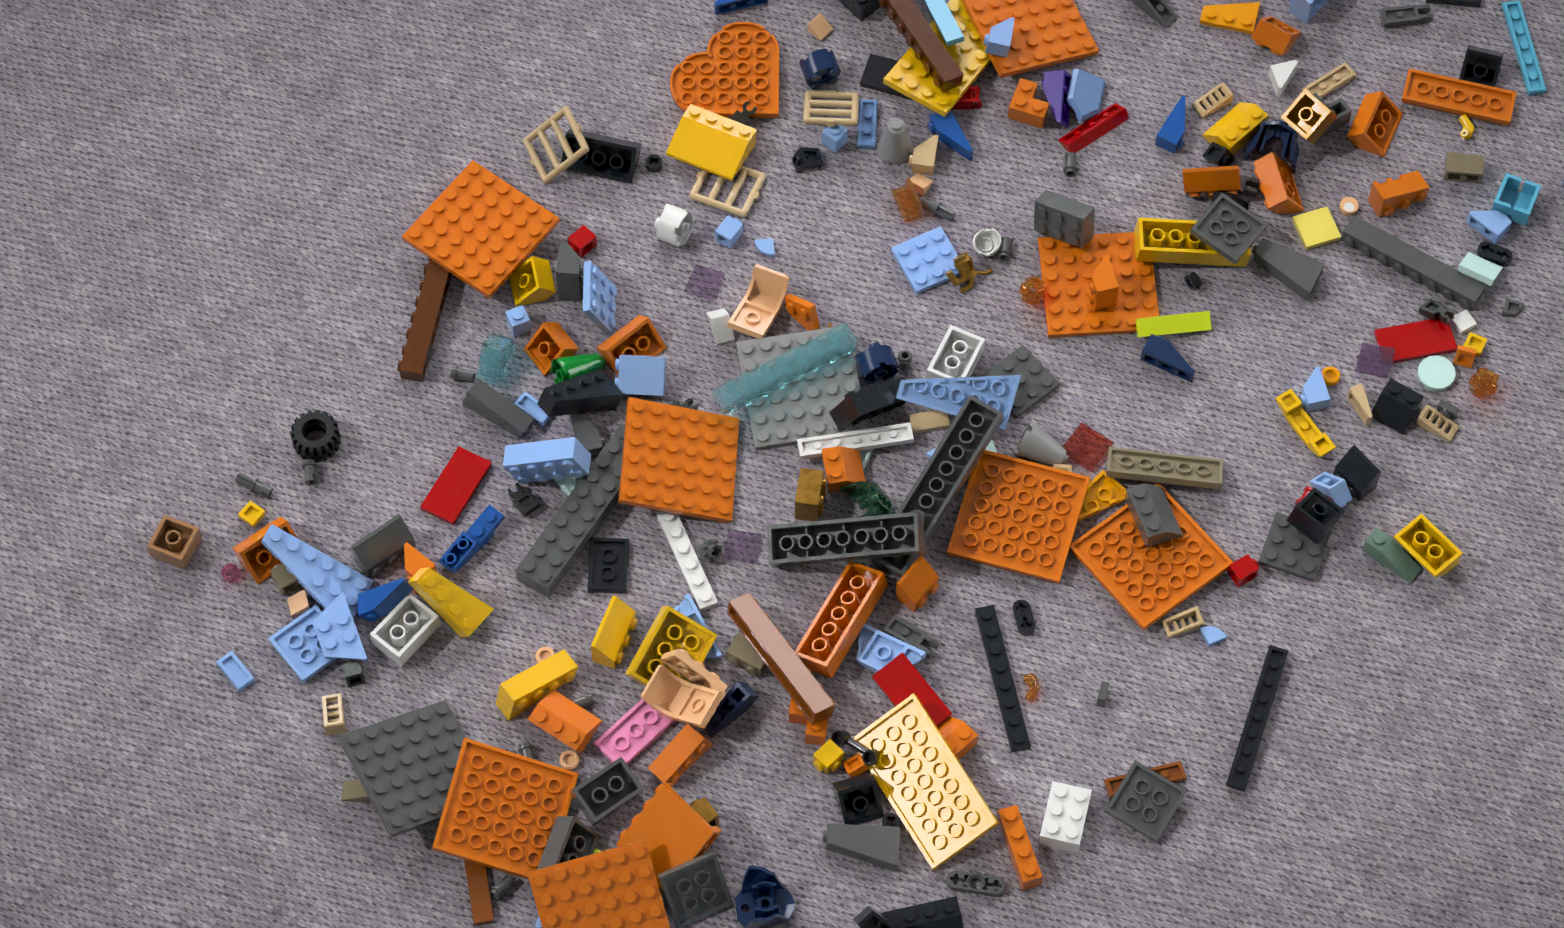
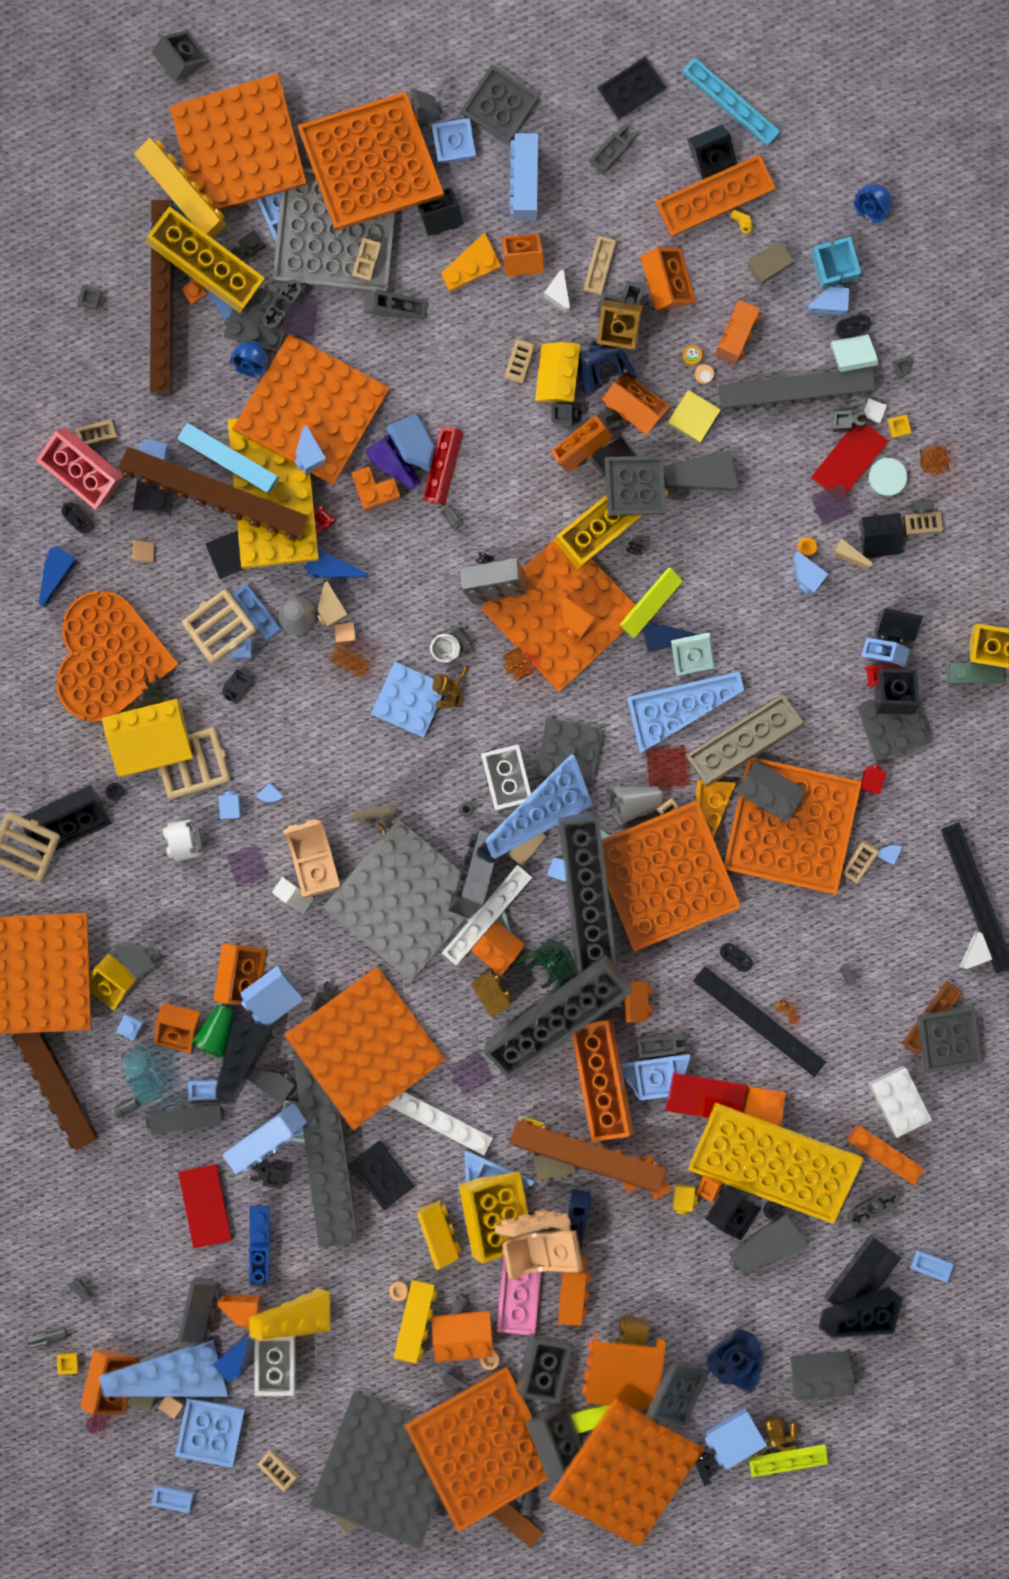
camera: 40 degrees left, 25 degrees up
(174, 542) = (31, 1440): medium nougat brick -> none
(315, 422) = (74, 1254): black tyre -> none
(338, 632) = (227, 1409): light blue wing -> none
(353, 673) = (265, 1427): pearl dark grey piece -> none
(582, 241) = (119, 913): red brick -> none
(599, 298) = (181, 960): light blue plate -> none
(710, 550) = (451, 1101): dark grey gear -> none
(785, 368) = (383, 903): clear light blue brick -> none
(802, 312) = (352, 833): orange wing -> none
(820, 68) = (178, 595): dark blue brick -> none
(834, 291) = (368, 816): none -> dark tan plate
(842, 737) = (719, 1176): black bar -> none
(877, 363) = (448, 832): dark blue brick -> none
(937, 209) = (379, 647): dark grey axle -> none
(1125, 408) = (668, 710): none -> light blue wing
(1172, 132) = (511, 417): blue slope -> none
(1175, 380) = (692, 654): none -> light aqua tile
(1221, 756) = (976, 952): none -> white slope
(1303, 425) = (822, 610): yellow slope -> none
(1350, 187) = (692, 355): none -> tile
(1464, 356) = (900, 445): orange plate -> none

